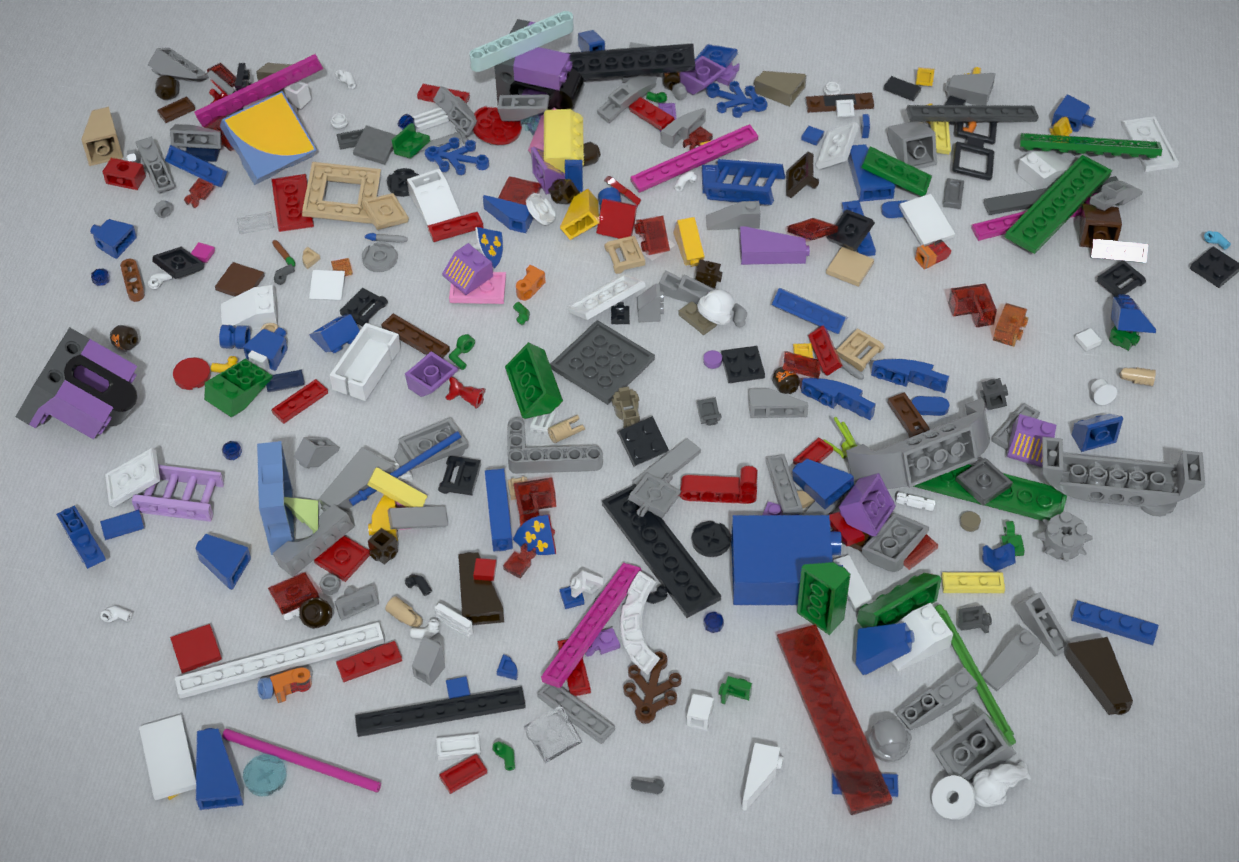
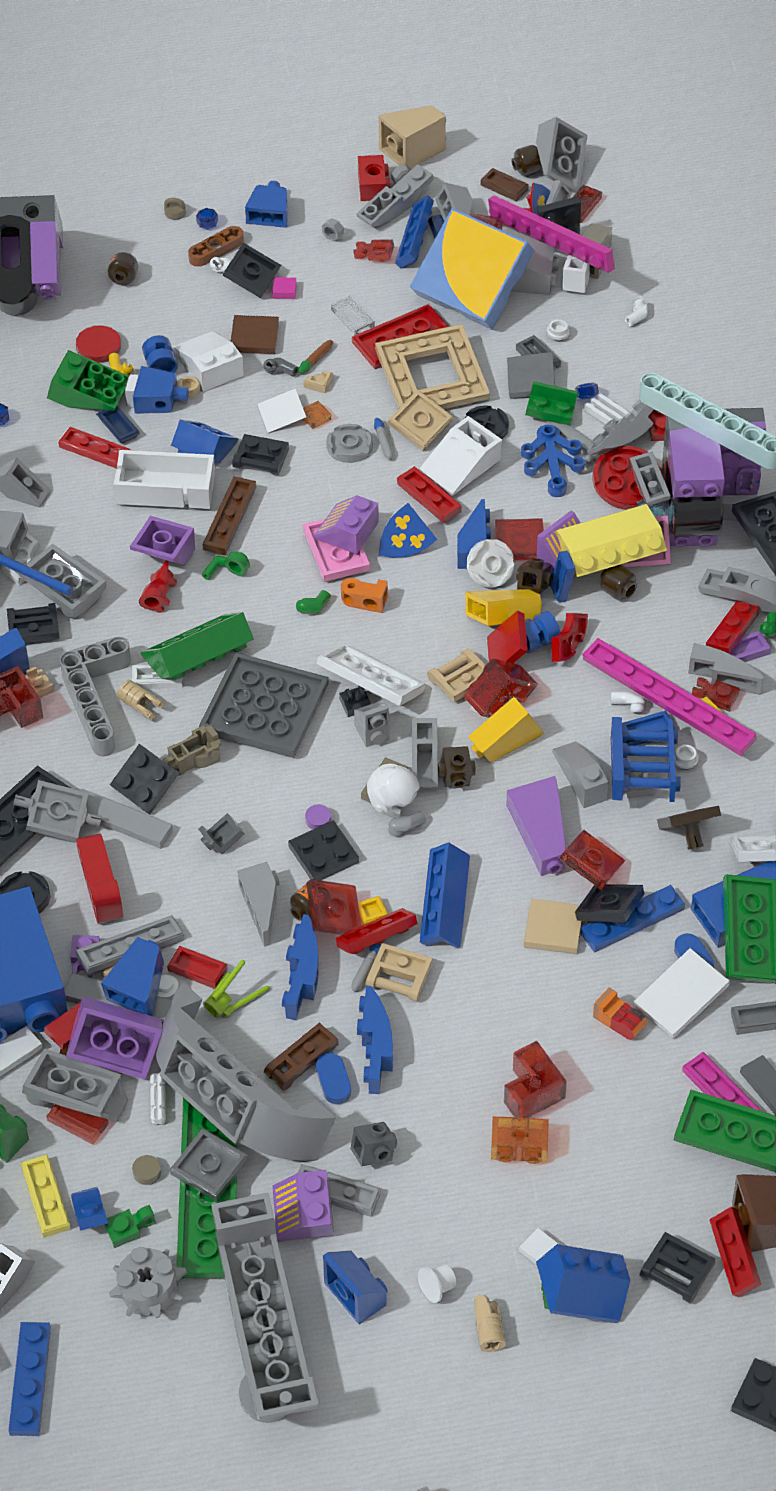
camera: 70 degrees right, 0 degrees up
(75, 293) = (174, 208): none -> dark tan tile

